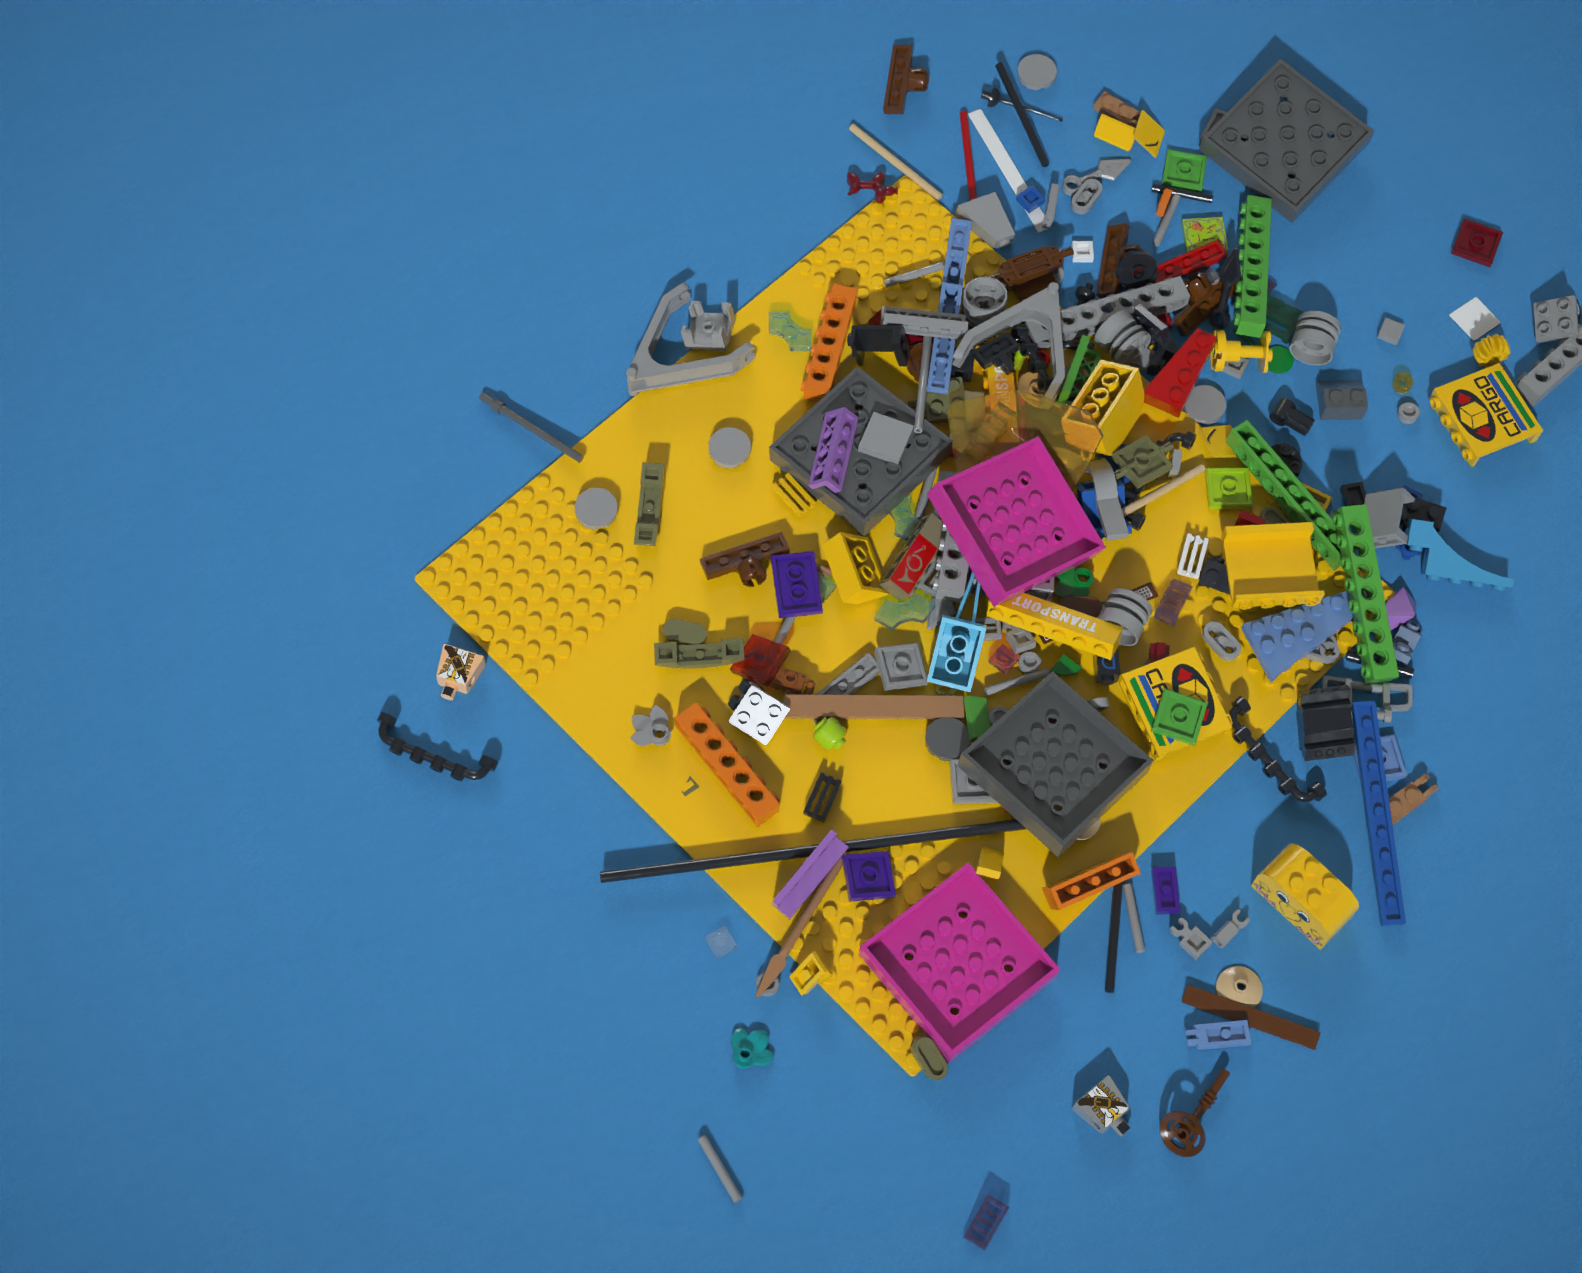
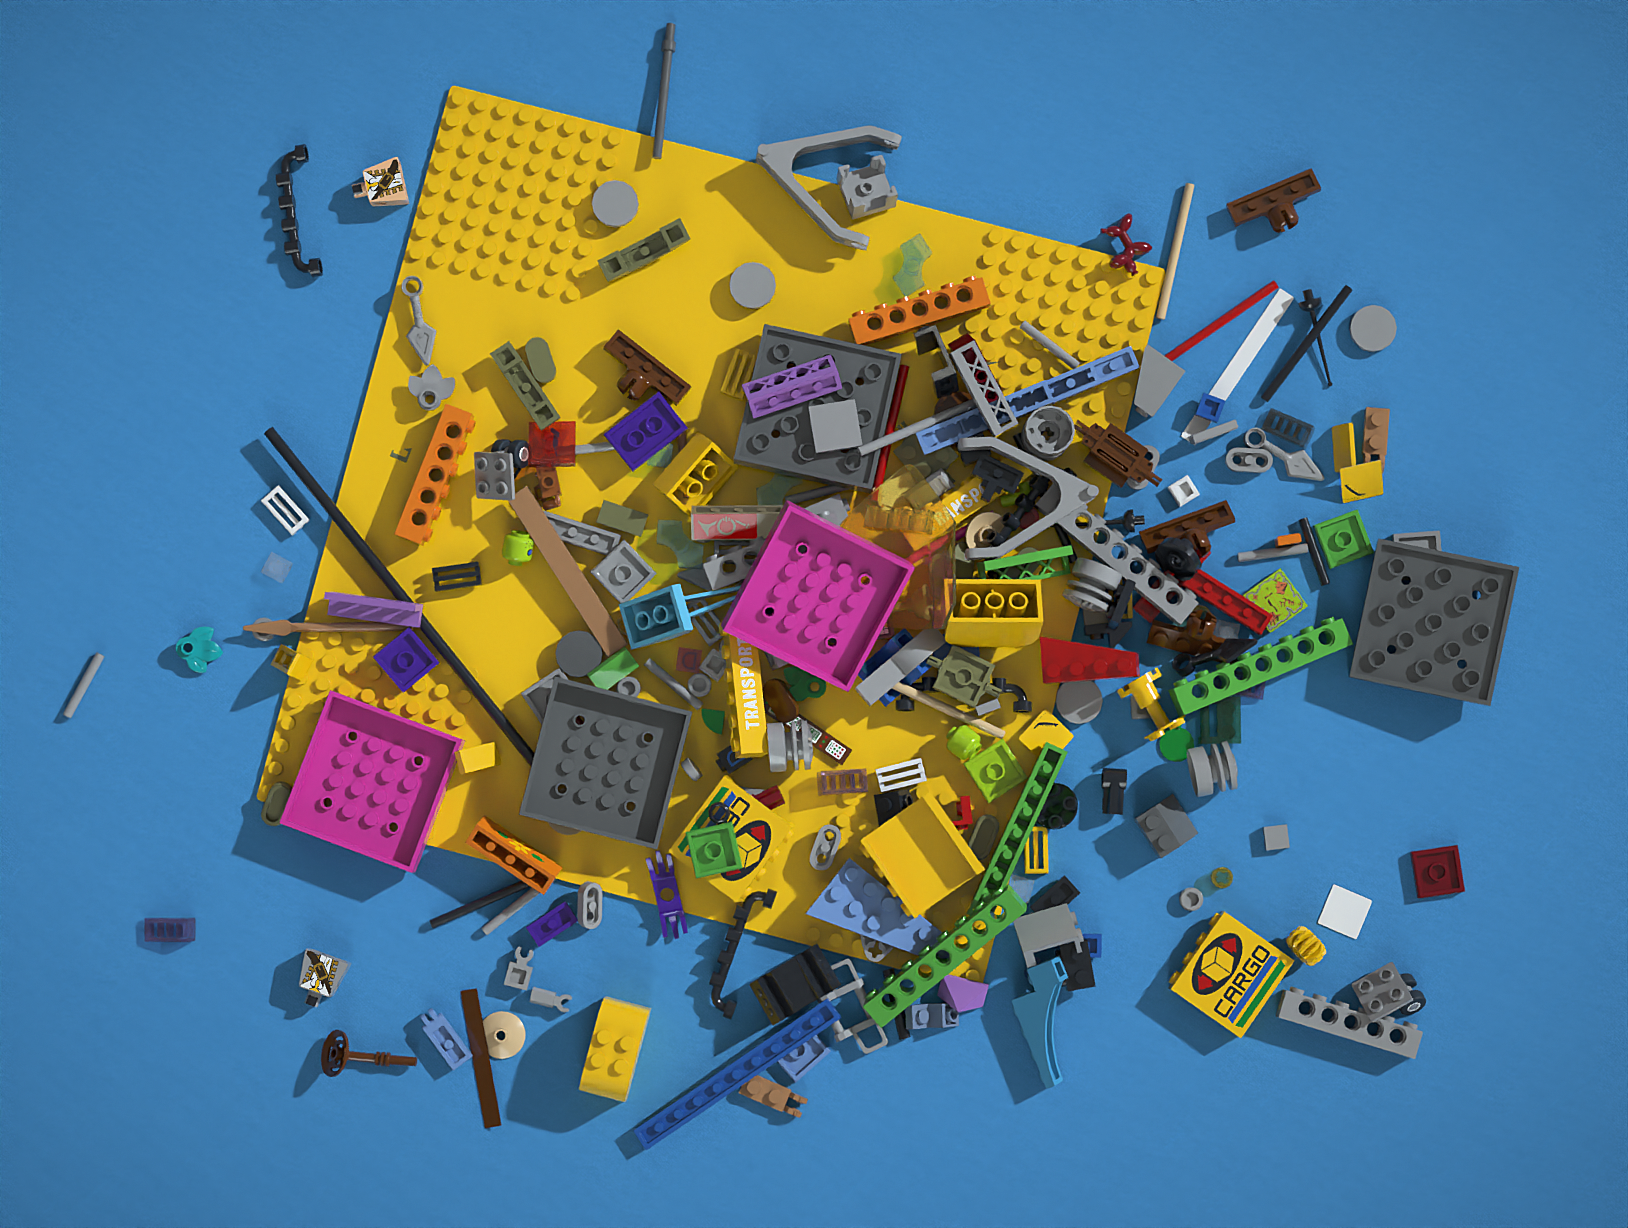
camera: 65 degrees right, 20 degrees up
(601, 711) = (421, 334): none -> light grey piece
(677, 915) = (298, 525): none -> white tile
(855, 644) = (622, 518): none -> olive tile
(1080, 151) = (1303, 443): none -> clear smoke slope
(1145, 699) = (710, 812): none -> black piece
(1166, 849) = (589, 902): none -> light grey plate
(1193, 495) = (963, 742): none -> lime head
(1205, 786) = (667, 908): none -> dark purple piece

